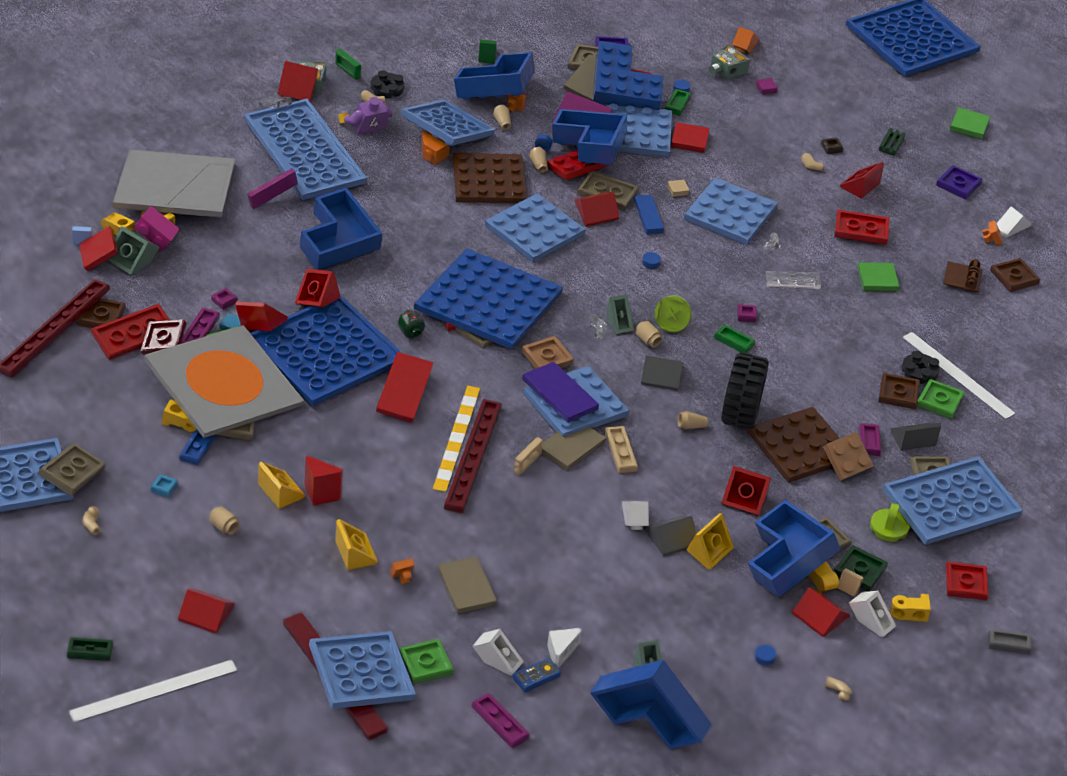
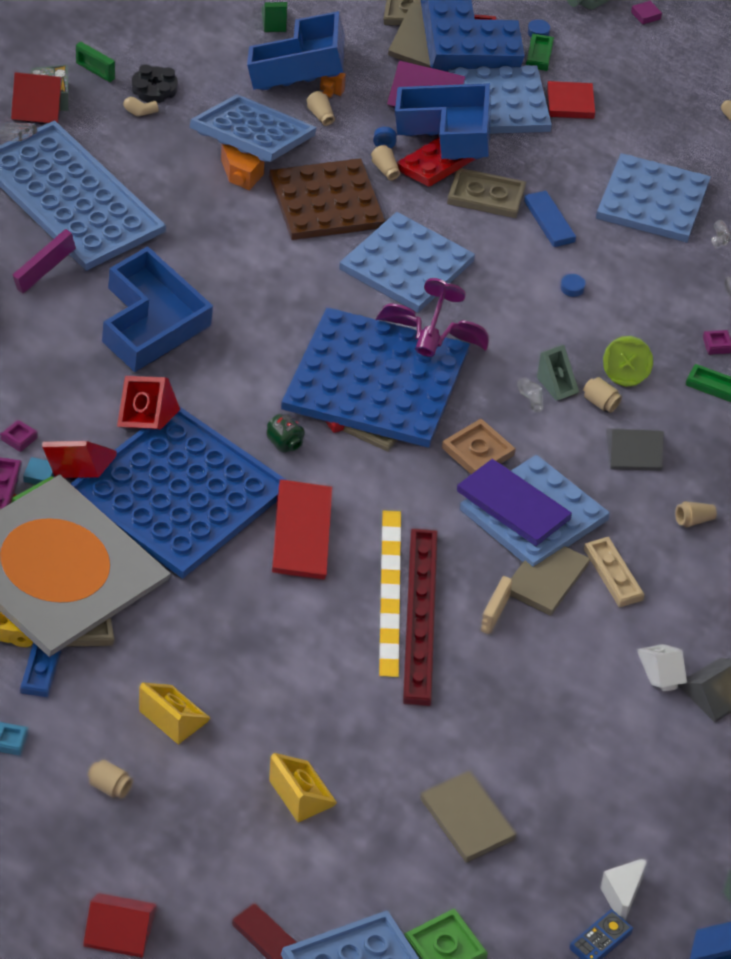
camera: 10 degrees left, 5 degrees up
(322, 481) = (231, 695): red slope -> none
(368, 116) = (144, 135): medium lavender torso -> none
(402, 570) = (377, 812): orange tile -> none
(498, 652) = (540, 914): white slope -> none
(531, 275) = (429, 337): none -> magenta plant
(598, 208) = (482, 221): red slope -> none
(678, 188) = (576, 175): tan tile -> none

